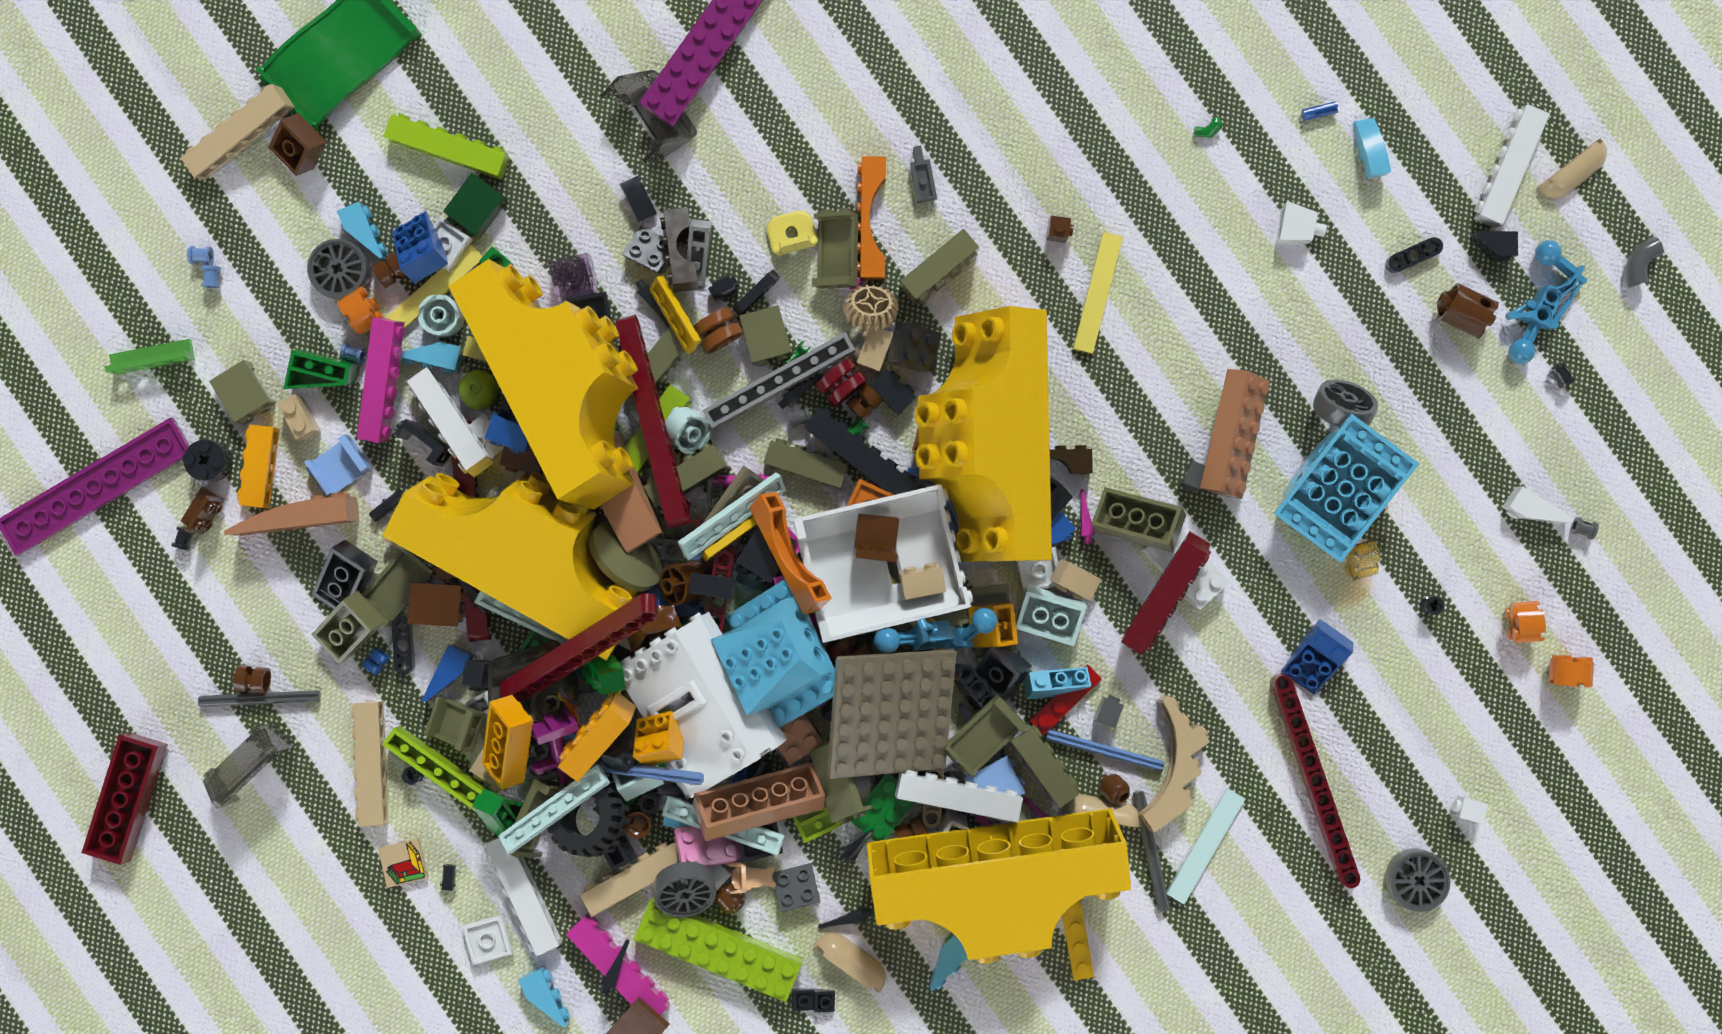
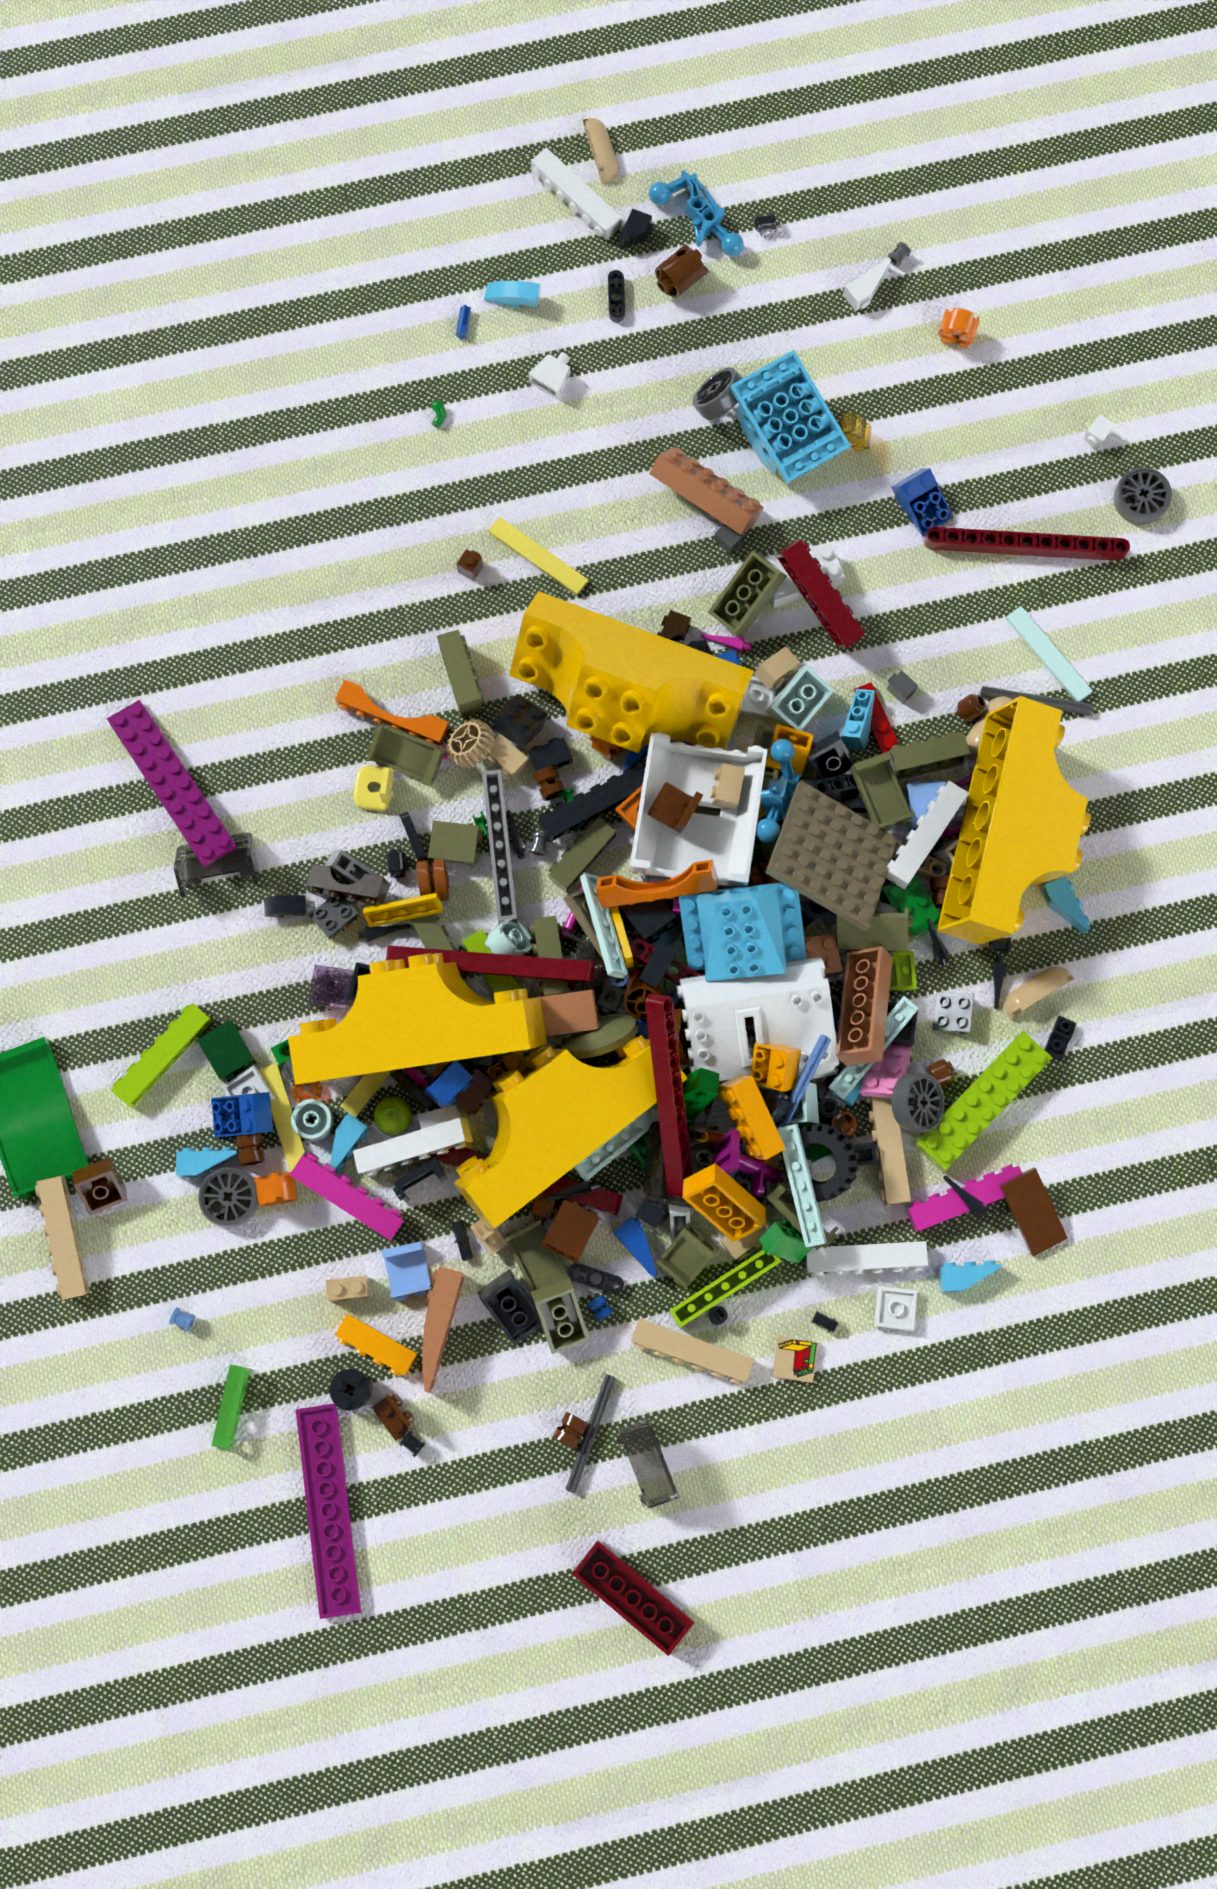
camera: 70 degrees left, 10 degrees down
(200, 255) = (158, 1321): medium blue bush -> none
(241, 393) = (302, 1332): olive panel -> none
(317, 370) = (312, 1254): green wedge -> none
(352, 353) = (310, 1216): medium blue bush -> none
(745, 878) = (929, 1051): light nougat hair -> none
(839, 380) = (523, 794): dark red wheel -> none
(922, 177) = (374, 658): dark grey hinge -> none
(1077, 942) = (1099, 793): yellow plate -> none
(1104, 750) = (935, 703): medium blue axle -> none
(1183, 768) = (952, 634): tan arch -> none
(1434, 600) = (913, 391): black bush -> none
(1571, 671) = (1014, 308): orange brick -> none
(1639, 259) = (695, 128): dark grey cylinder -> none

